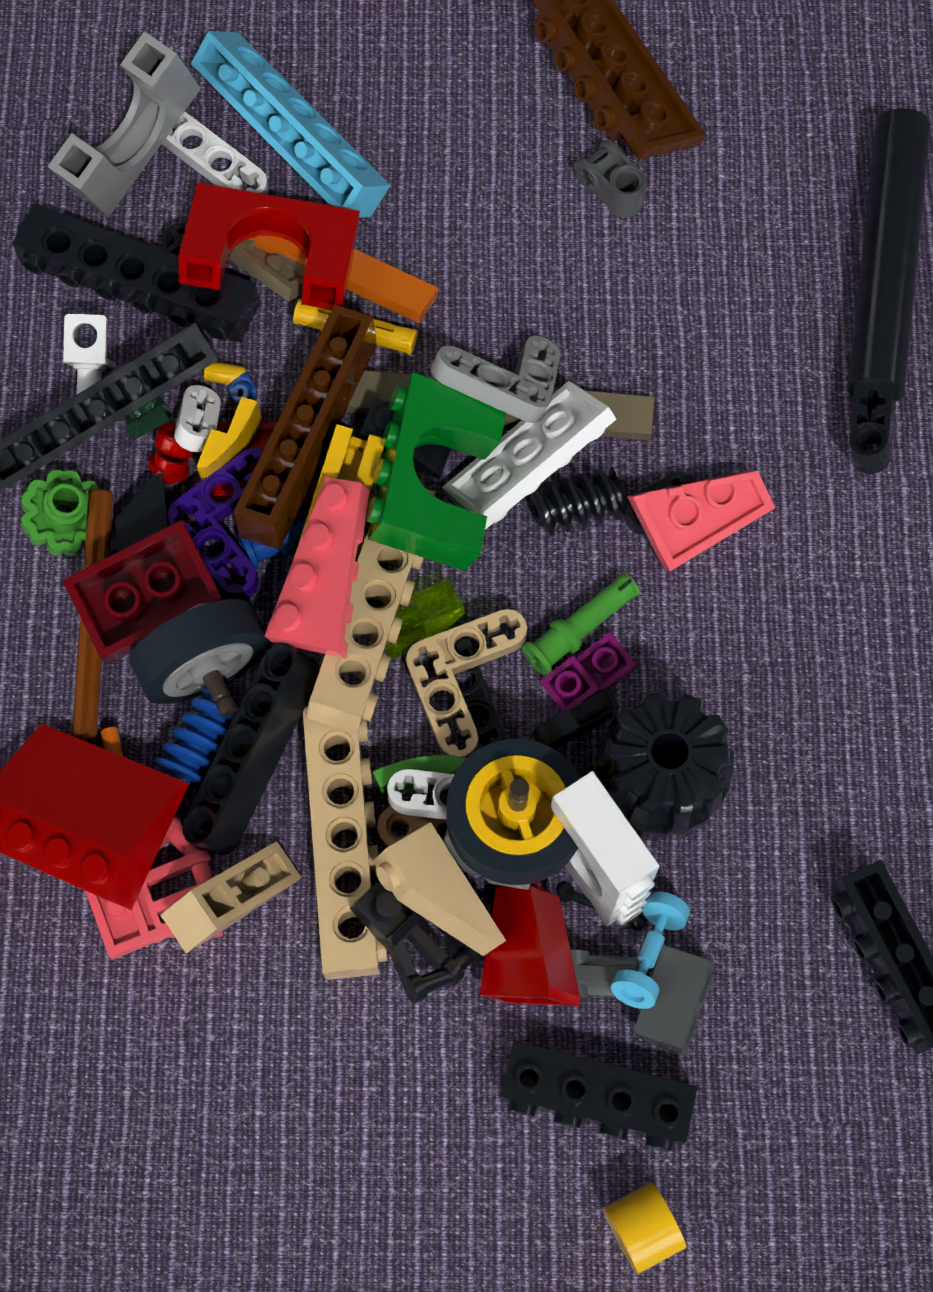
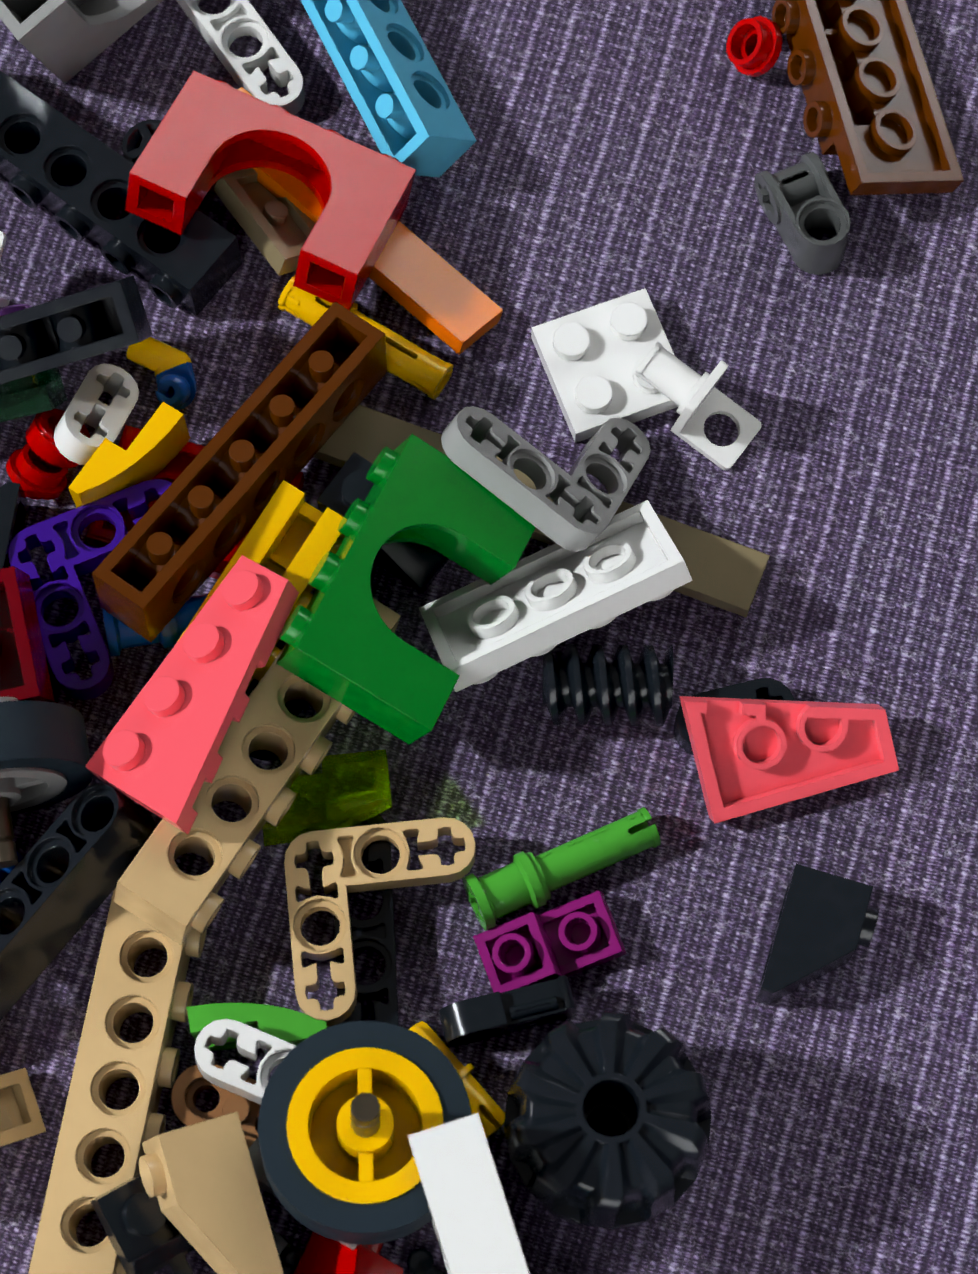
camera: 15 degrees right, 0 degrees up
(516, 305) = (594, 362): none -> white plate
(549, 83) = (754, 45): none -> red plate
(580, 314) = (697, 402): none -> white bracket
(753, 619) = (815, 931): none -> black slope

